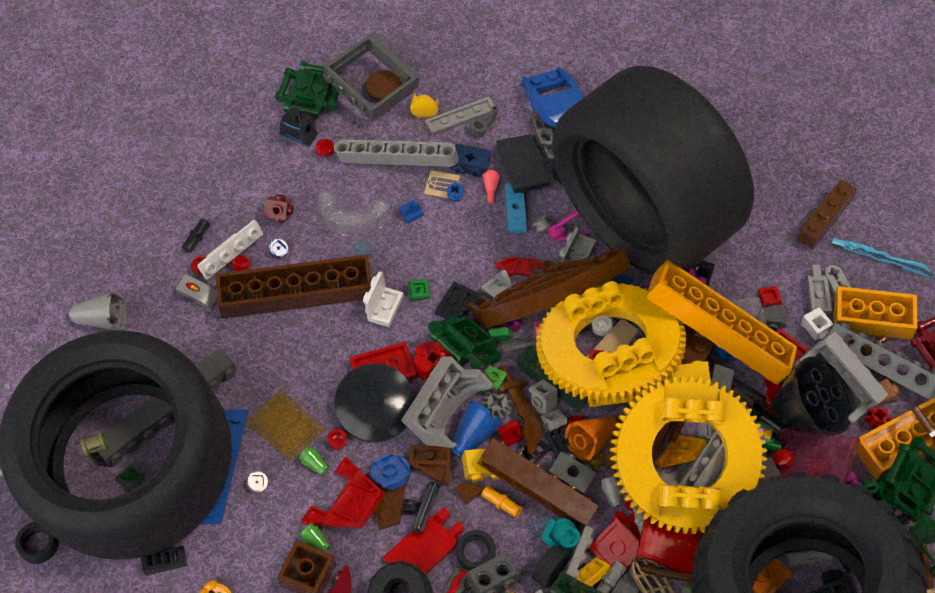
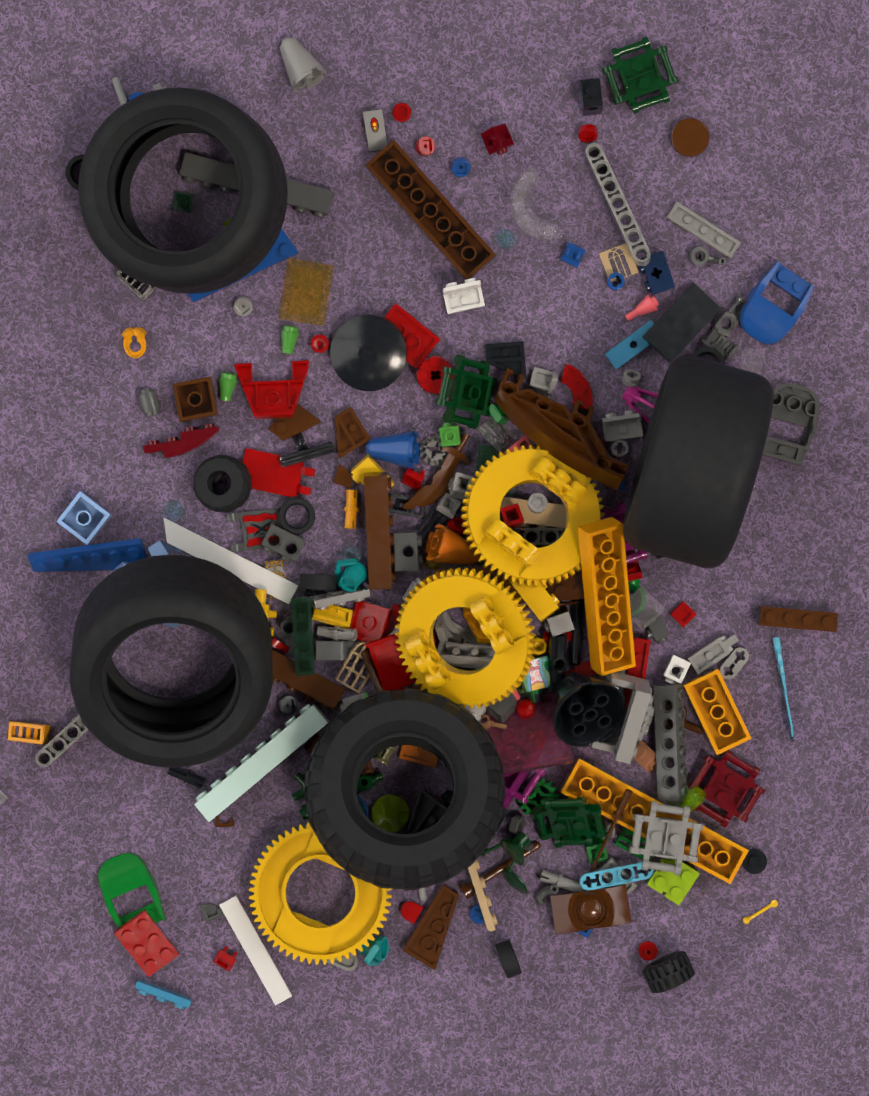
camera: 55 degrees right, 30 degrees up
(94, 444) = (154, 193): olive bush -> none
(196, 235) = (427, 86): black axle -> none
(230, 249) = (428, 127): white bracket -> none
(388, 58) = (714, 131): dark grey window -> none
(390, 472) = (319, 405): blue tile -> none
(419, 289) = (498, 315): green tile -> none
(423, 106) = (688, 193): yellow hair -> none
(436, 403) = (396, 404): light grey piece -> none
(877, 417) = (610, 762): red gear -> none

